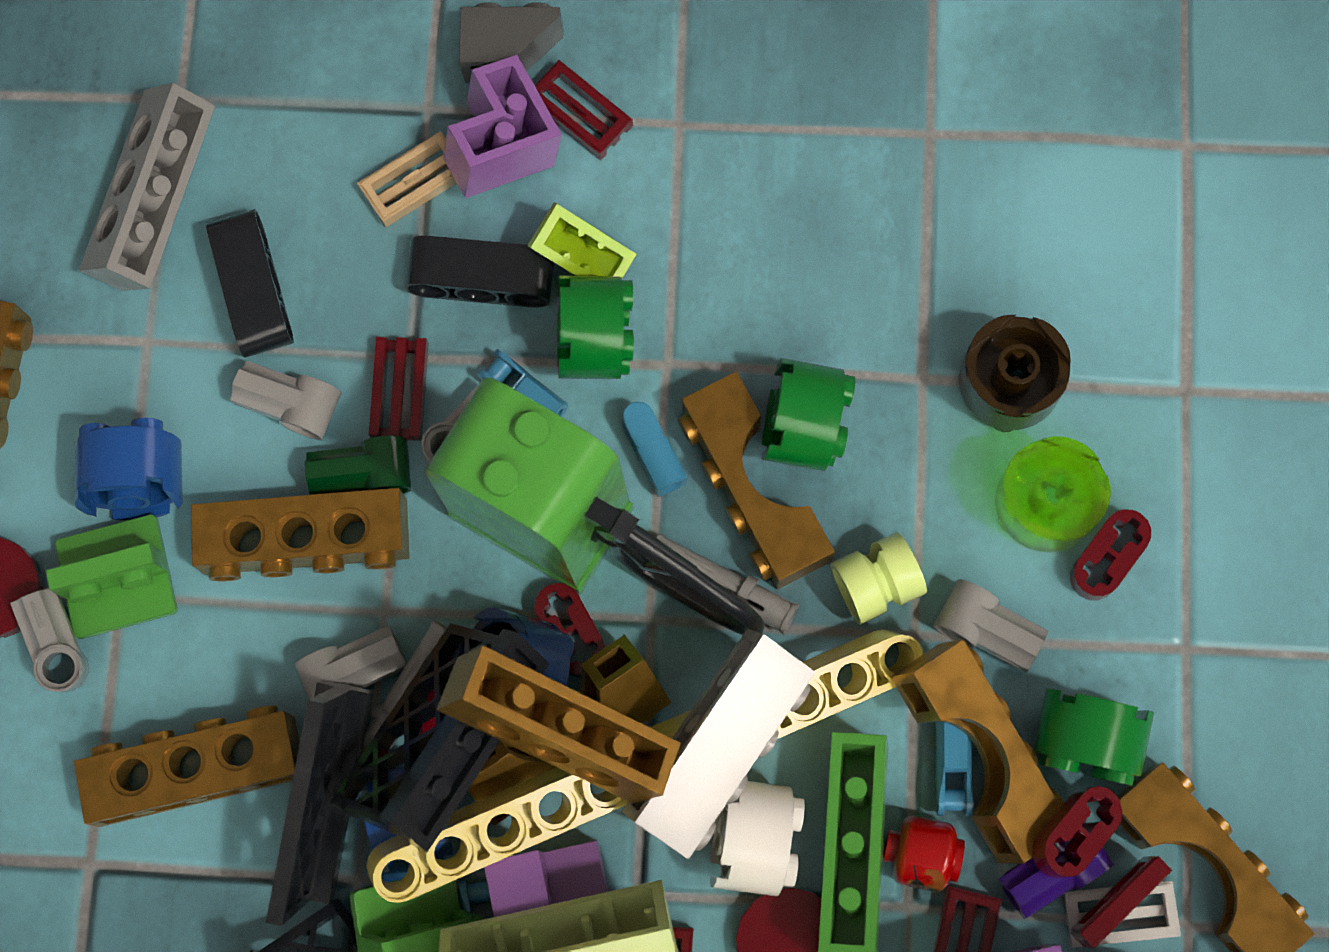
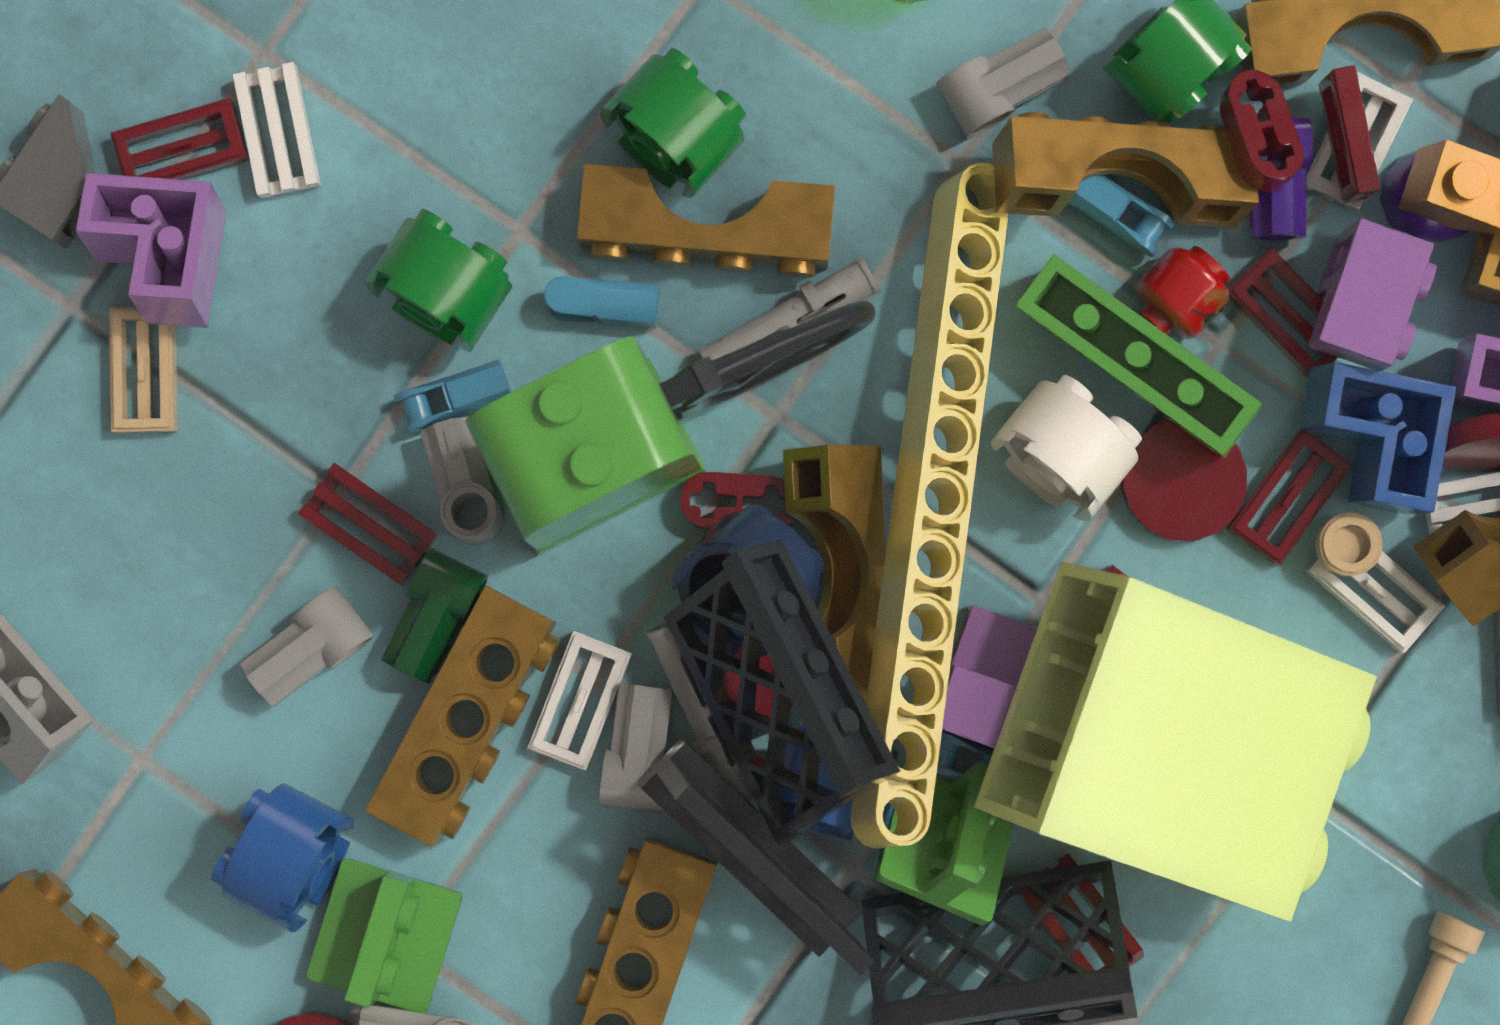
camera: 60 degrees left, 10 degrees up
(249, 283) = (151, 611): black beam -> none
(358, 588) = (561, 749): none -> white tile
(478, 272) = (297, 362): black beam -> none
(558, 725) = (860, 565): pearl gold brick -> none
(579, 245) = (342, 239): lime slope -> none
(659, 135) = (266, 79): none -> white tile
(722, 740) = (964, 420): brick -> none
(878, 578) = (886, 159): yellowish green wheel -> none

